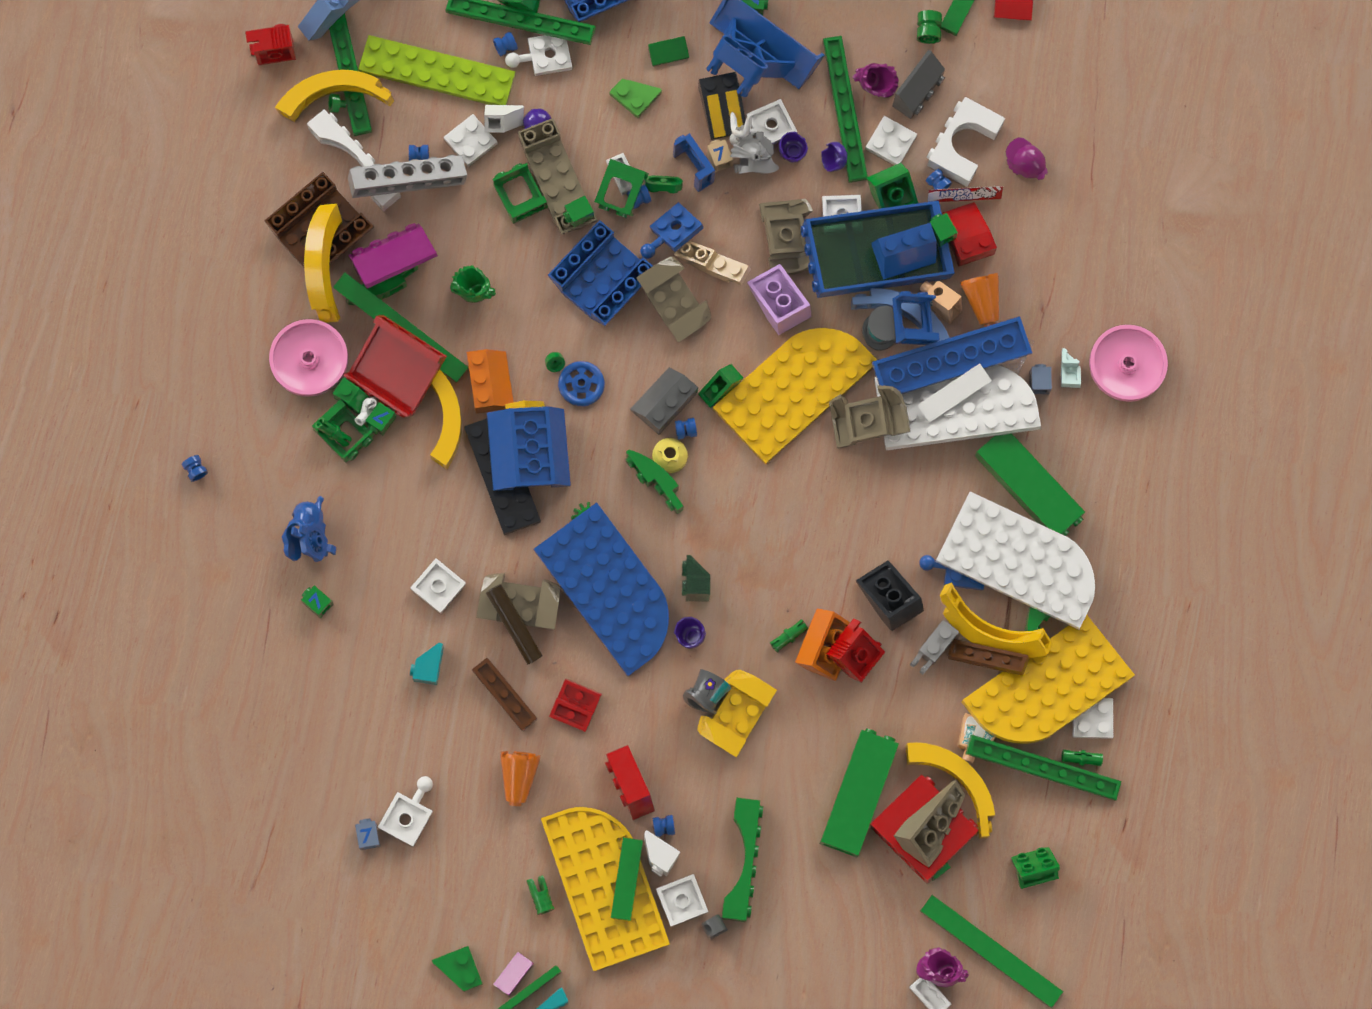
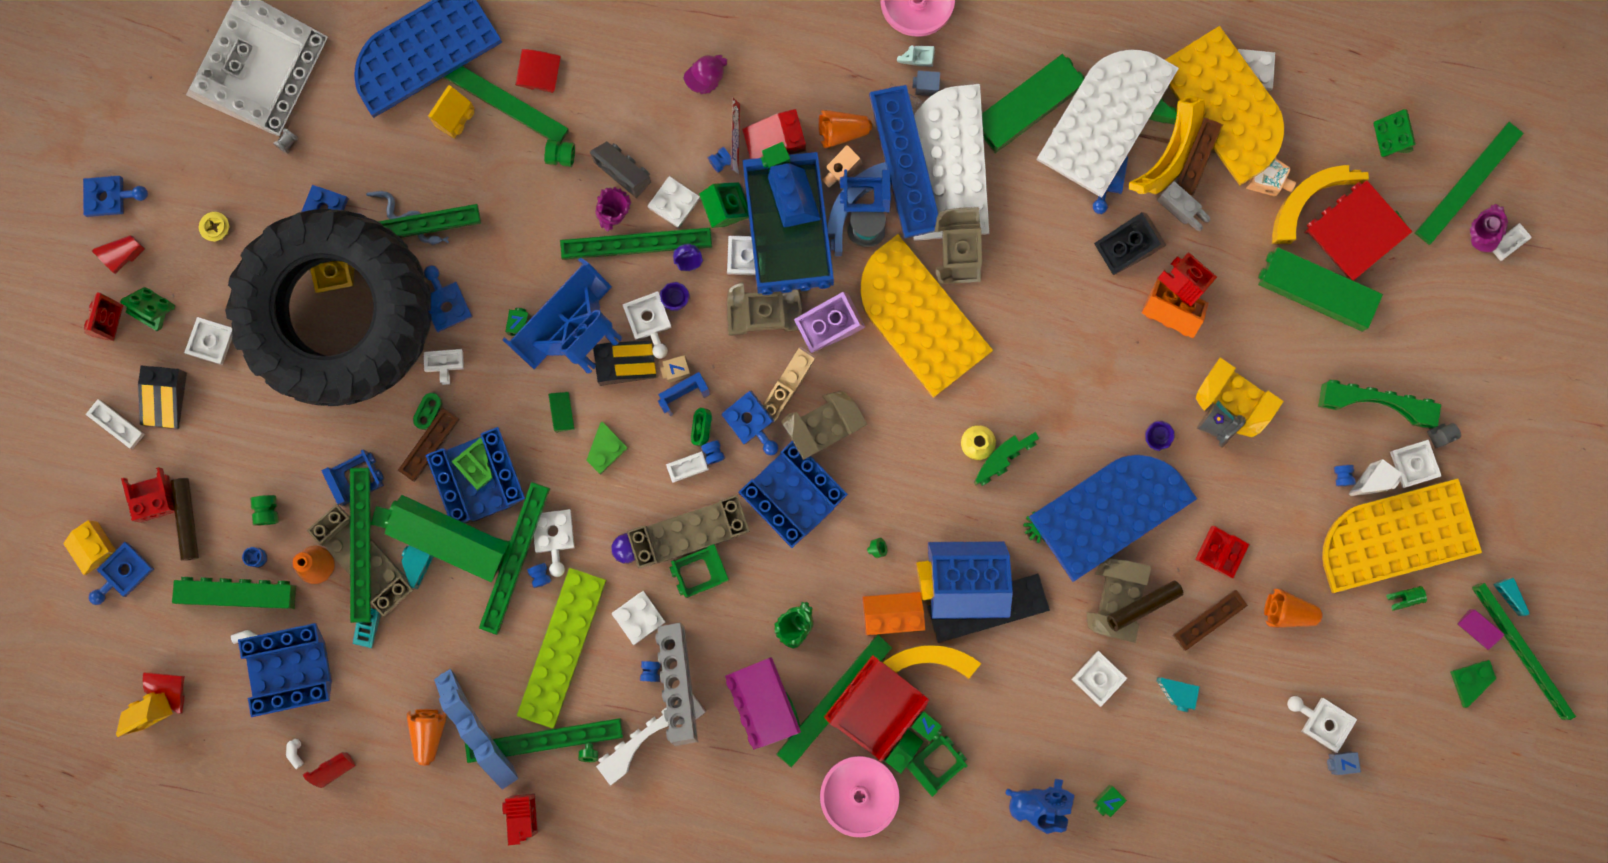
camera: 80 degrees left, 5 degrees up
(293, 219) = (707, 787): reddish brown slope -> none
(317, 259) = (760, 781): yellow arch -> none
(329, 82) = (575, 785): yellow arch -> none
(333, 431) = (939, 775): green pin -> none
(367, 407) = (918, 740): white arm -> none
(503, 117) = (619, 583): white slope -> none
(578, 211) = (732, 511): green brick -> none
(581, 367) = (913, 534): blue plate -> none
(624, 172) = (690, 462): green window -> none
(626, 879) = (1397, 514): green tile -> none
(630, 782) = (1302, 505): red wedge -> none
(665, 400) = (923, 443): dark grey slope -> none
(690, 427) = (954, 424): blue wheel -> none
(697, 581) = (1113, 425): clear green slope -> none
(720, 385) = (913, 387): green slope -> none
(753, 152) = (677, 336): light grey helmet -> none
(789, 635) = (1164, 342): green pin -> none
(926, 828) = (1368, 230): dark tan wedge -> none
(954, 393) = (941, 162): white sticker -> none
(967, 116) = (693, 152): white arch -> none
(1043, 767) = (1303, 118): green tile -> none
(1082, 757) = (1292, 82): green pin -> none

